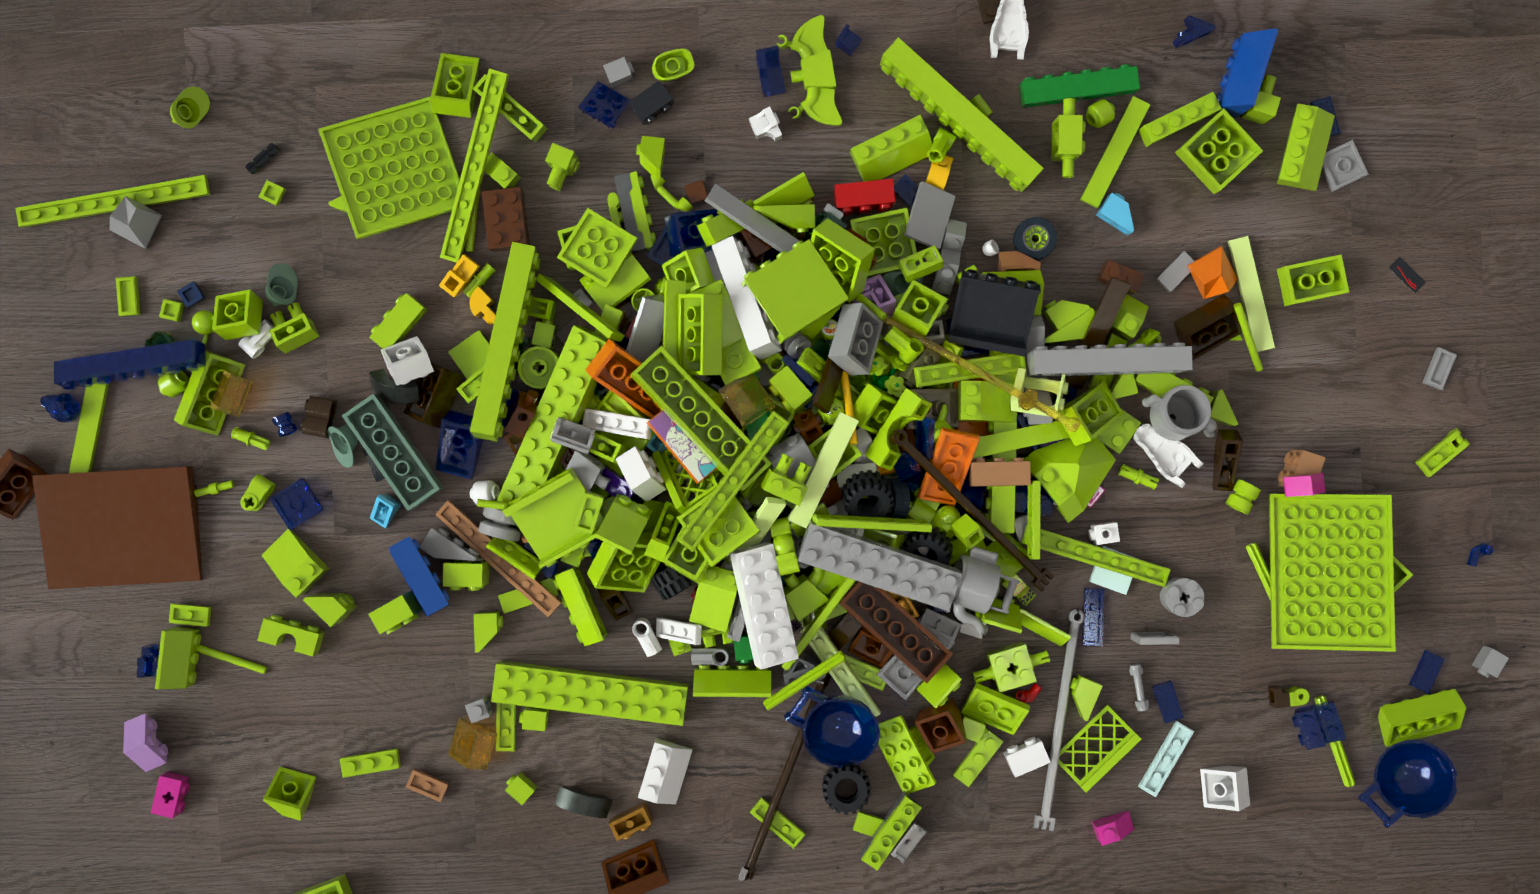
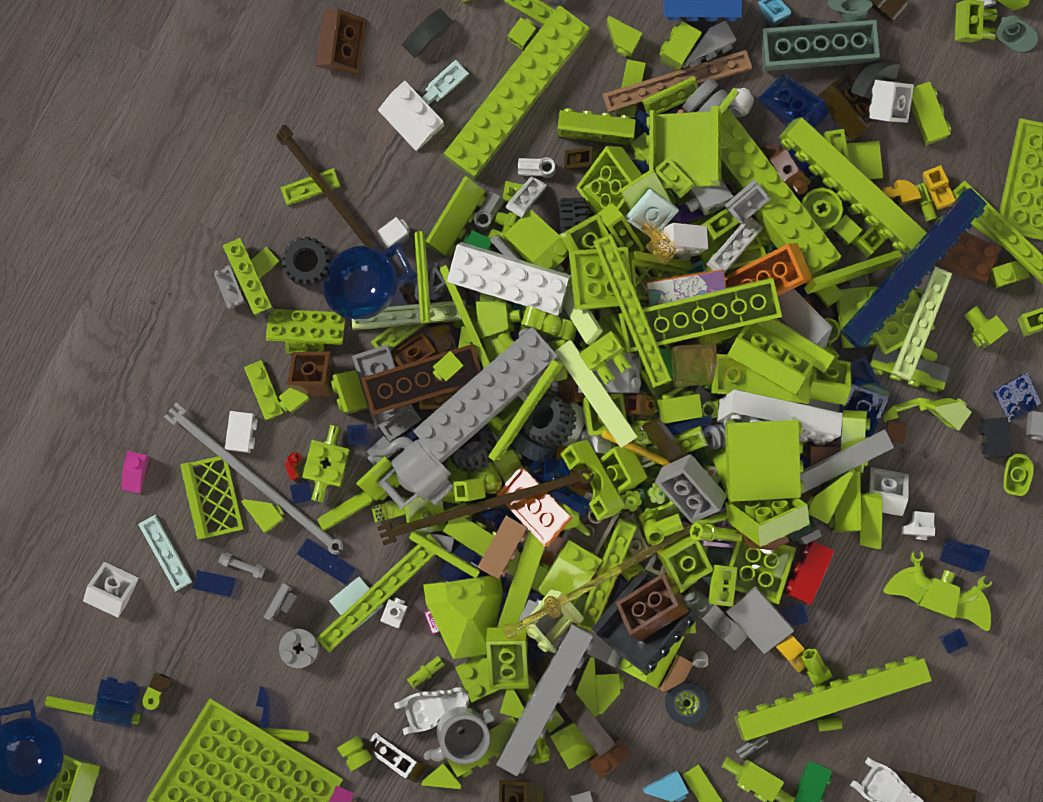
camera: 120 degrees right, 5 degrees down
(546, 255) = (913, 268): none -> clear blue brick
(590, 221) = (921, 323): none -> yellowish green tile
(618, 760) = (445, 82): none -> light aqua hinge
(631, 821) = (387, 63): pearl gold brick -> none
(633, 513) = (651, 210): none -> light aqua tile
(657, 491) = (660, 244): none -> clear yellow bracket
(752, 170) = (892, 487): none -> white slope
(777, 727) = (394, 232): none -> white brick
(786, 169) = (871, 520): none -> lime slope
(874, 614) = (447, 366): none -> lime brick
(883, 300) = (710, 532): none -> lime pin
(892, 150) = (835, 622): lime slope -> none
(971, 654) = (358, 435): none -> clear blue brick
(978, 313) = (652, 607): none -> reddish brown brick
(995, 709) = (298, 428): lime plate -> none
(1046, 164) = (748, 748): none -> light grey piece
(1047, 673) = (301, 492): none -> clear blue tile
(1148, 628) = (288, 602): none -> light grey tile
(1244, 599) = (264, 701): none -> clear blue slope

